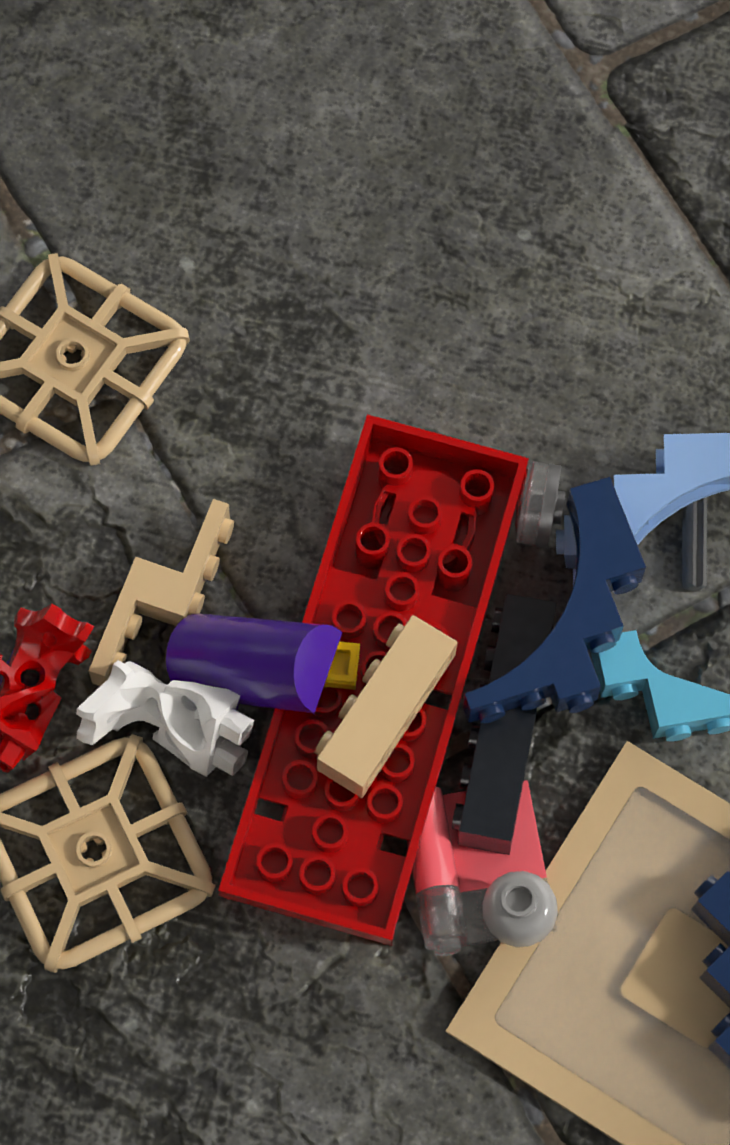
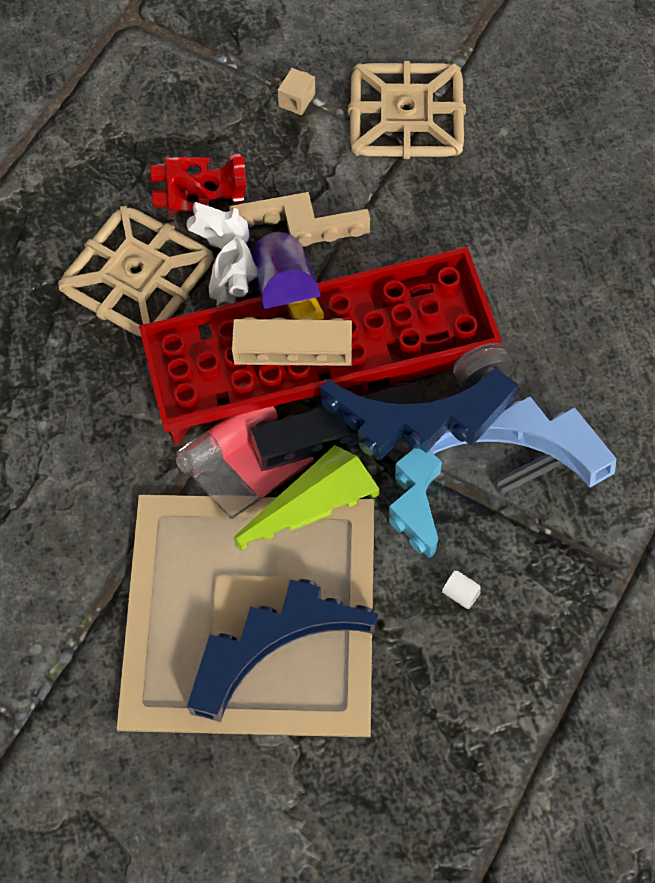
camera: 65 degrees right, 5 degrees down
(519, 909) = (224, 485): light grey piece -> none
(586, 783) = (328, 484): none -> lime wedge

